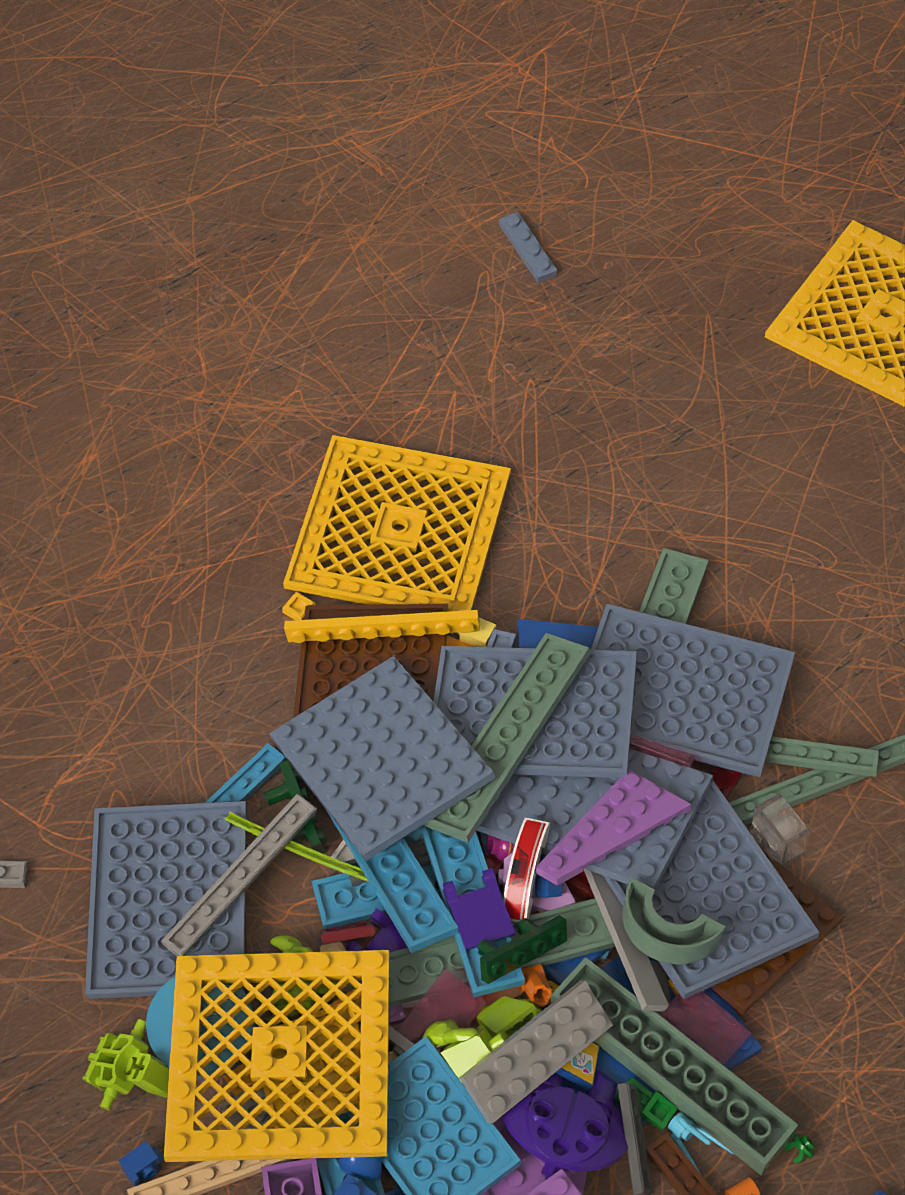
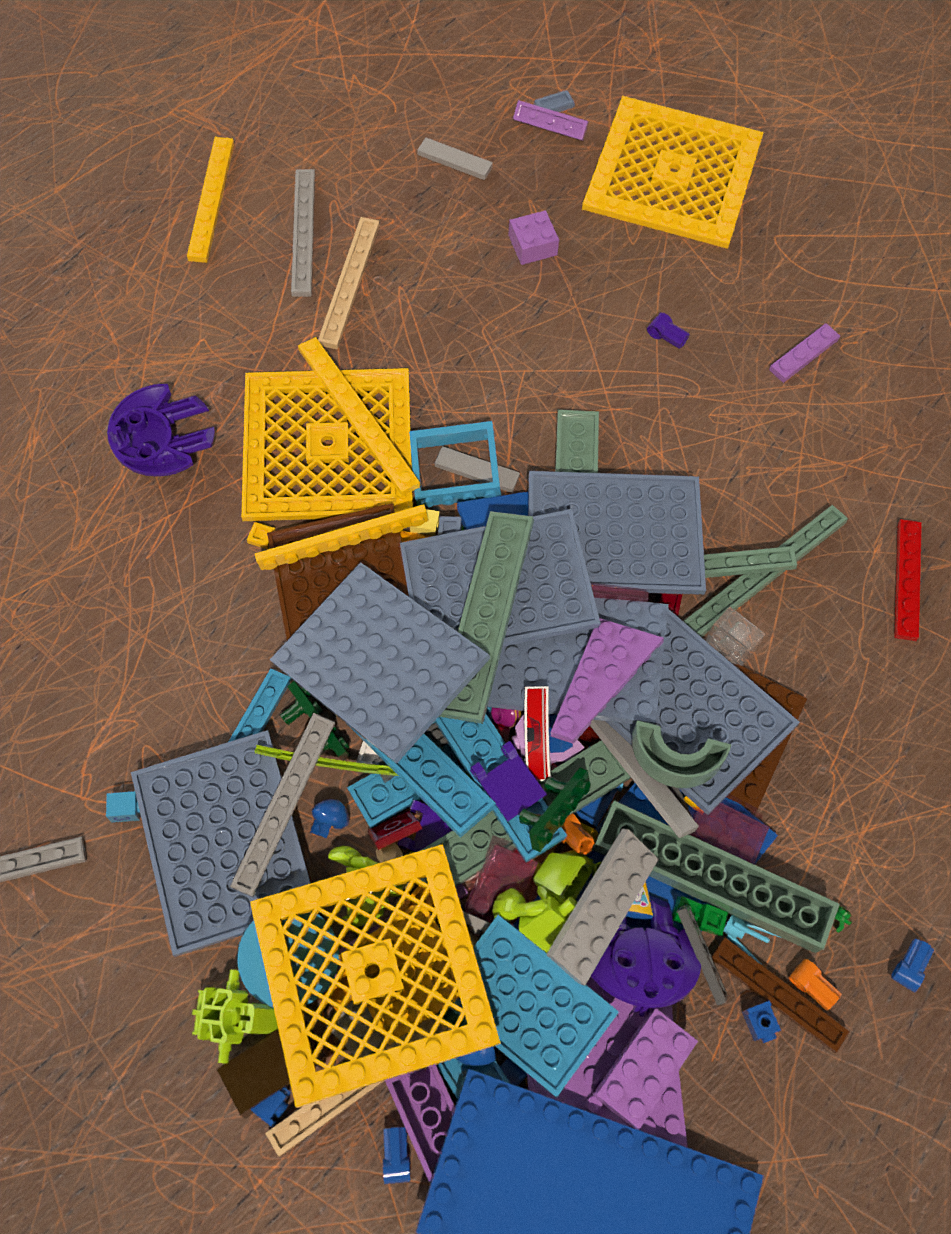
camera: 20 degrees left, 10 degrees up
(76, 842) = (122, 807): none -> dark azure brick
(135, 1128) = (258, 1073): none -> dark brown panel
(207, 470) = (153, 432): none -> dark purple piece
(284, 902) = (328, 814): none -> blue piece
(350, 244) = (210, 200): none -> yellow plate
(440, 507) = (359, 417): none -> yellow plate
(441, 300) = (303, 233): none -> light grey tile
(474, 363) = (348, 283): none -> tan plate
(527, 247) = (363, 172): sand blue plate -> none
(530, 549) = (448, 436): none -> dark azure window
(554, 592) = (475, 468): none -> light grey tile
(636, 252) = (455, 158): none -> light grey tile
(696, 357) = (533, 237): none -> medium lavender brick
(759, 231) = (550, 120): none -> medium lavender plate
(770, 213) = (556, 102): none -> sand blue tile
(814, 486) = (664, 328): none -> dark purple piece

